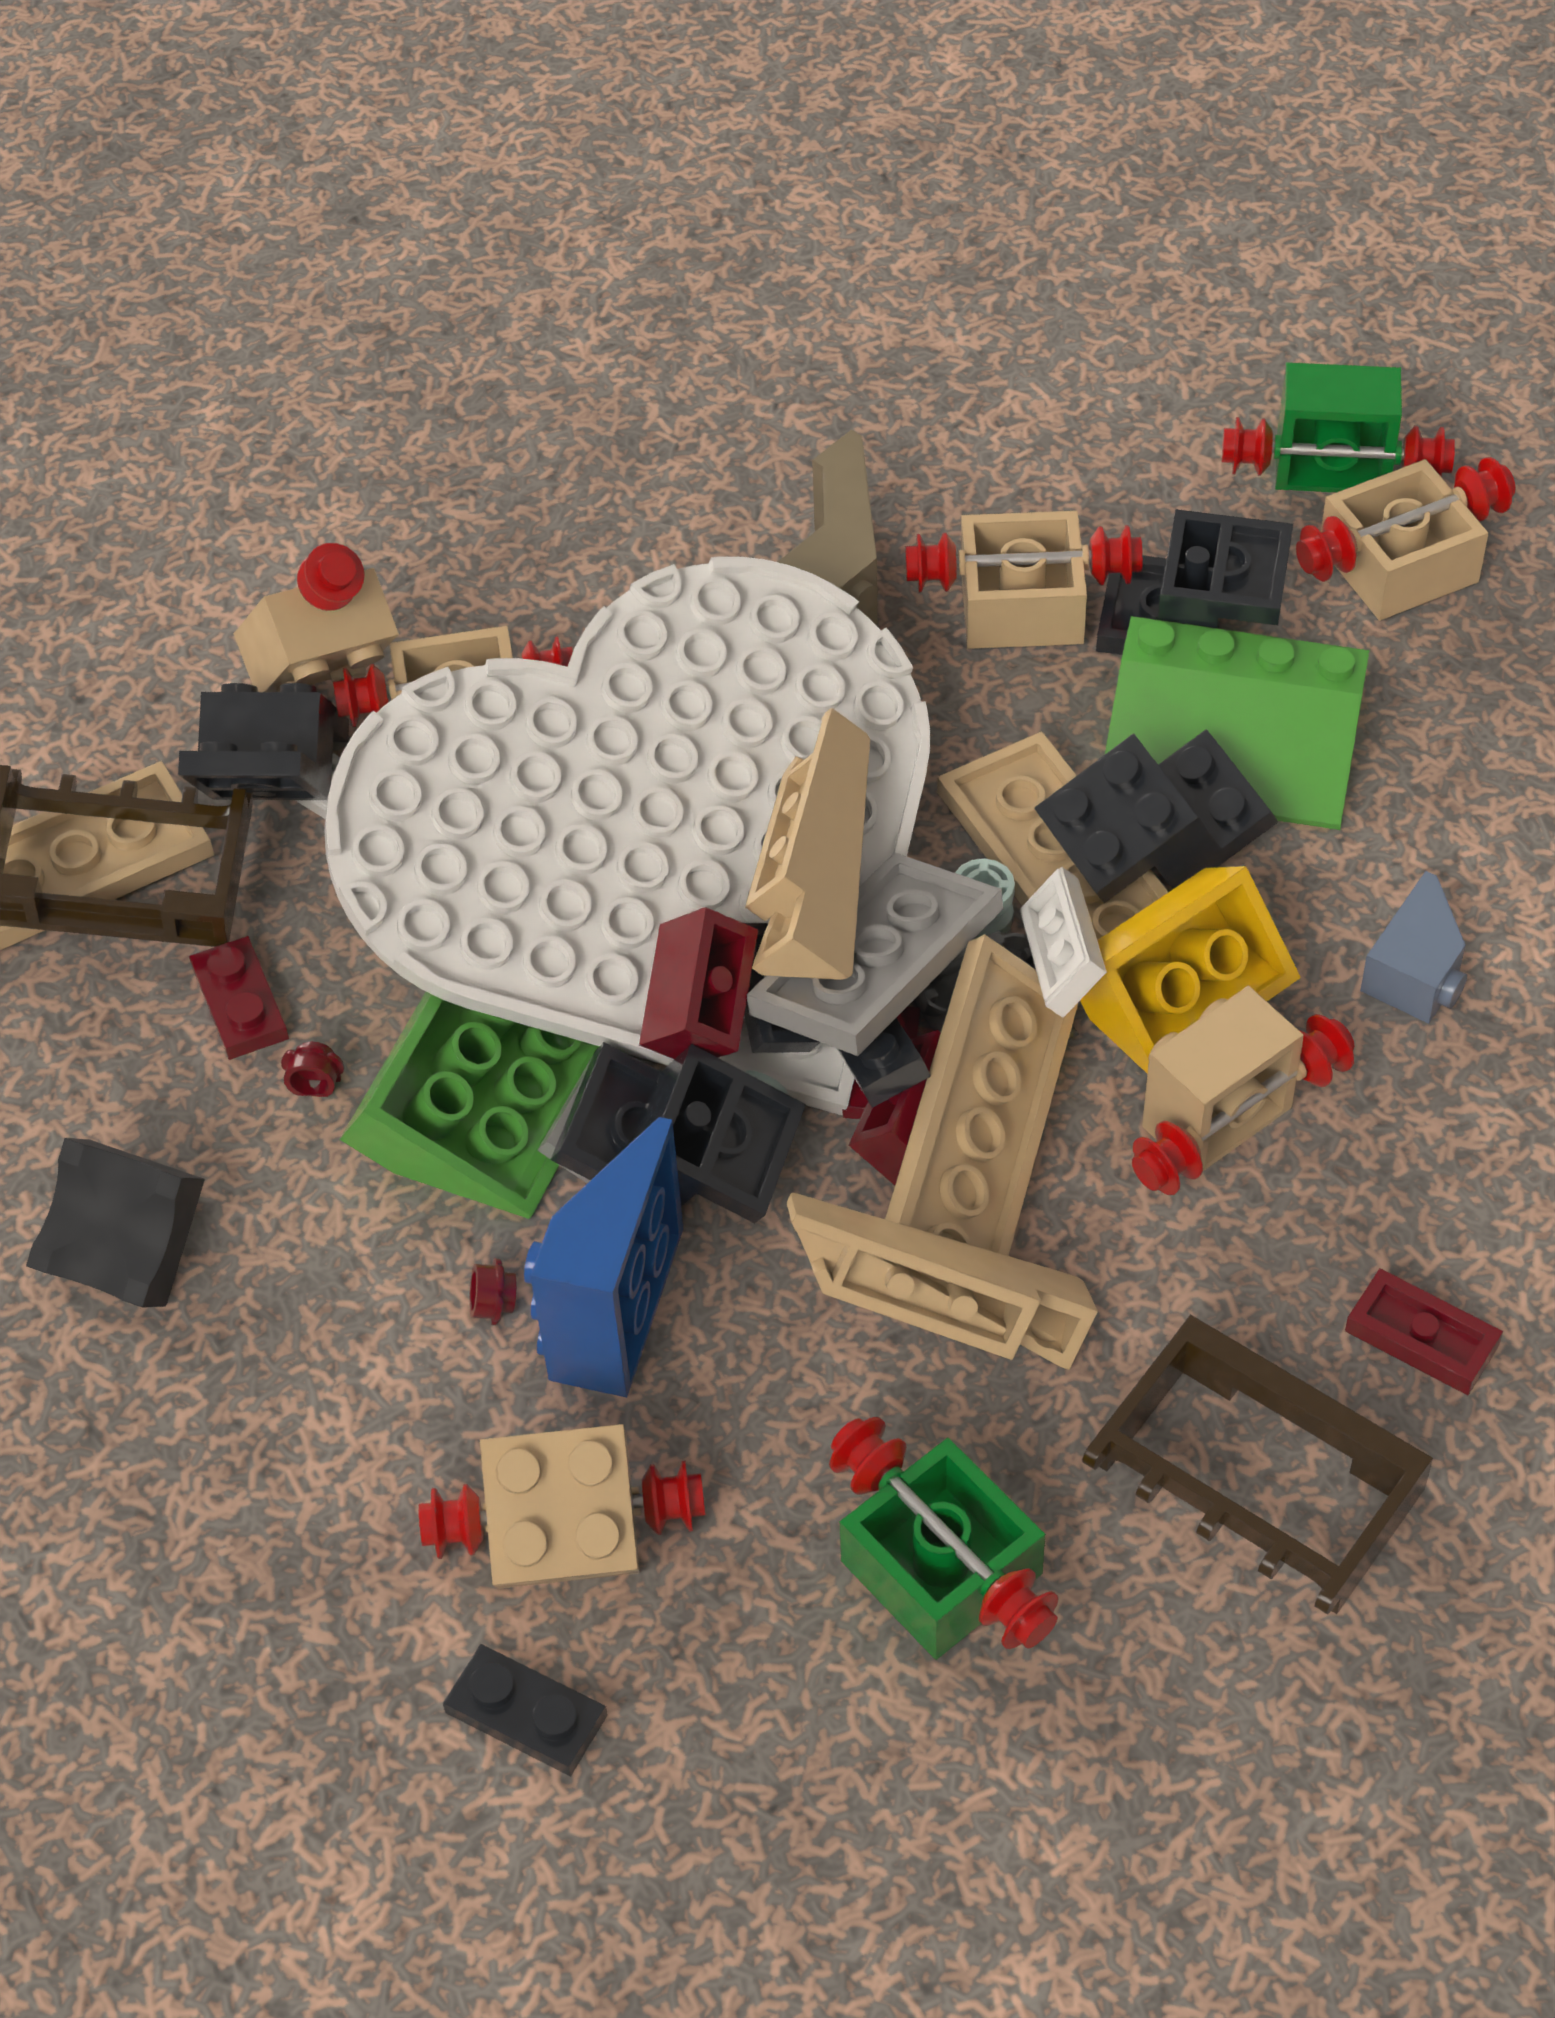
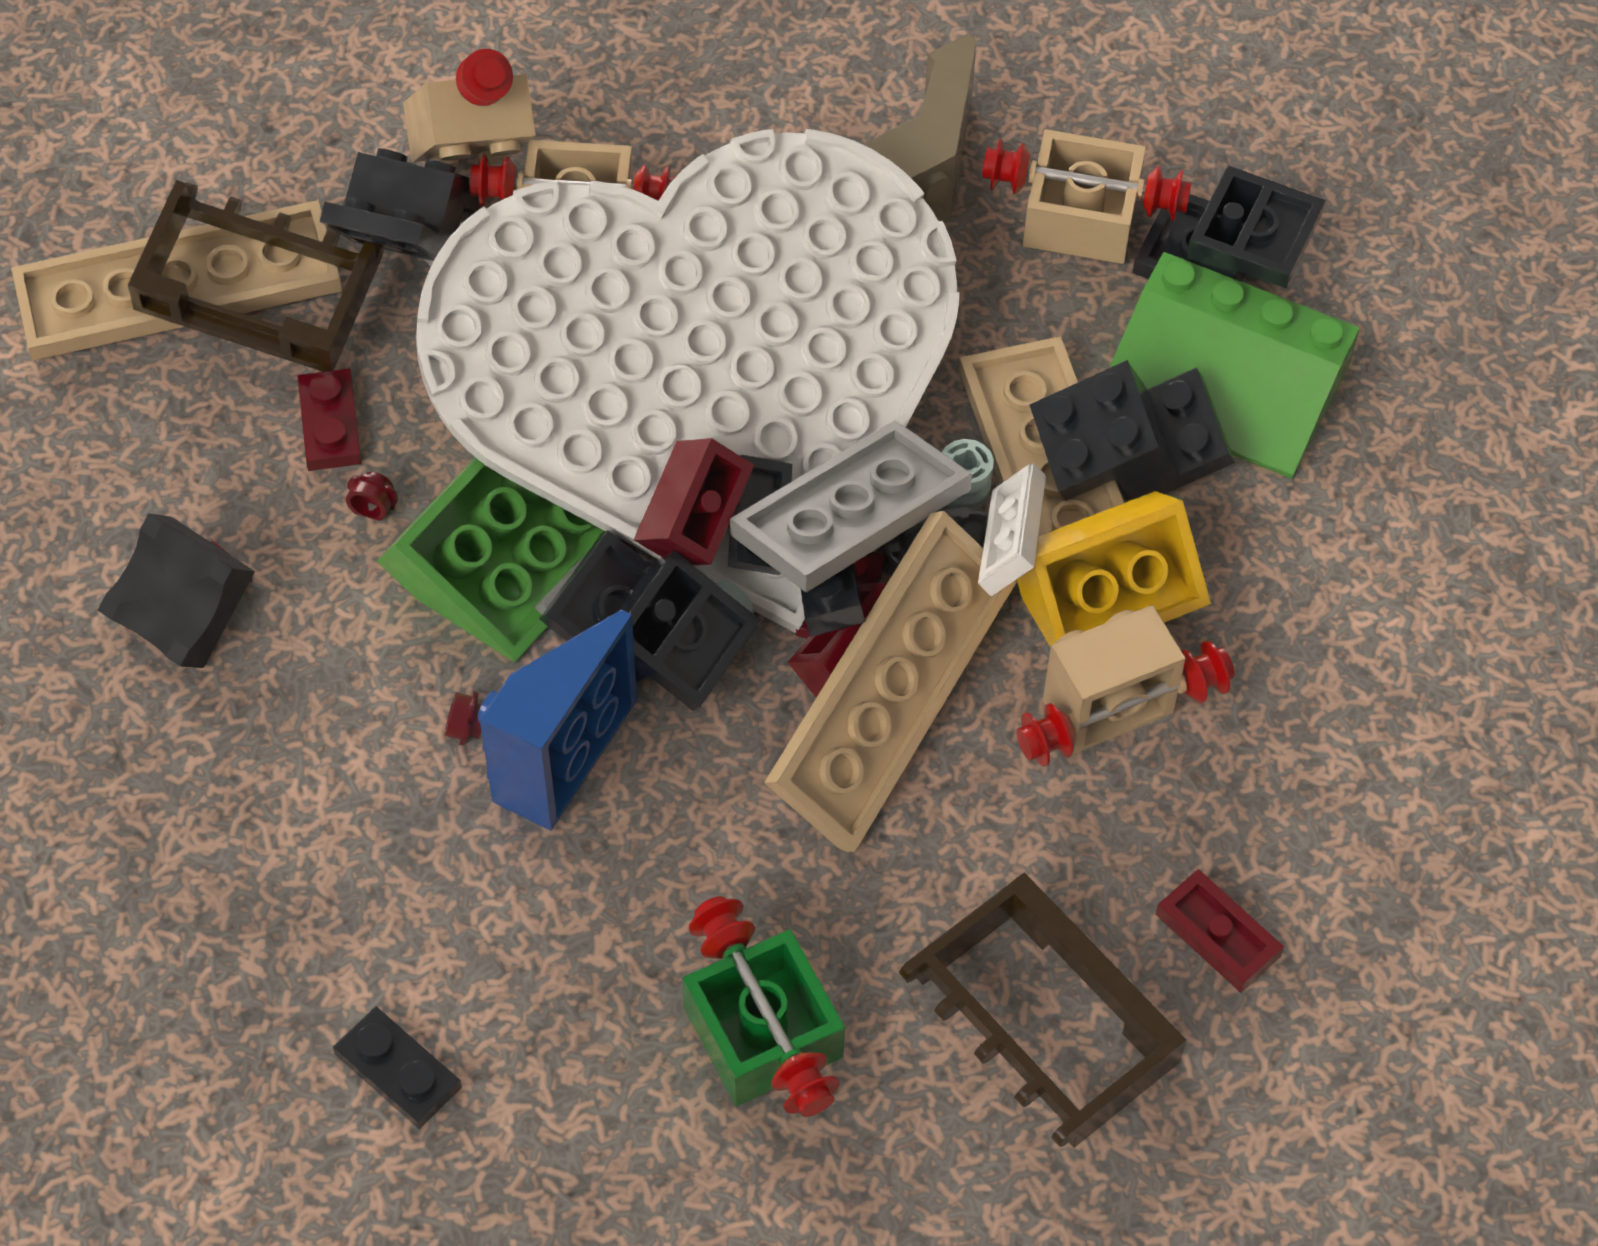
camera: 10 degrees right, 5 degrees up
(559, 1507) = (467, 910): tan brick -> none
(813, 859) = (820, 412): tan wedge -> none
(943, 1283) = (826, 798): tan wedge -> none
(1335, 430) = (1397, 122): green brick -> none
(1407, 534) = (1429, 227): tan brick -> none
(1418, 955) = (1318, 606): sand blue slope -> none

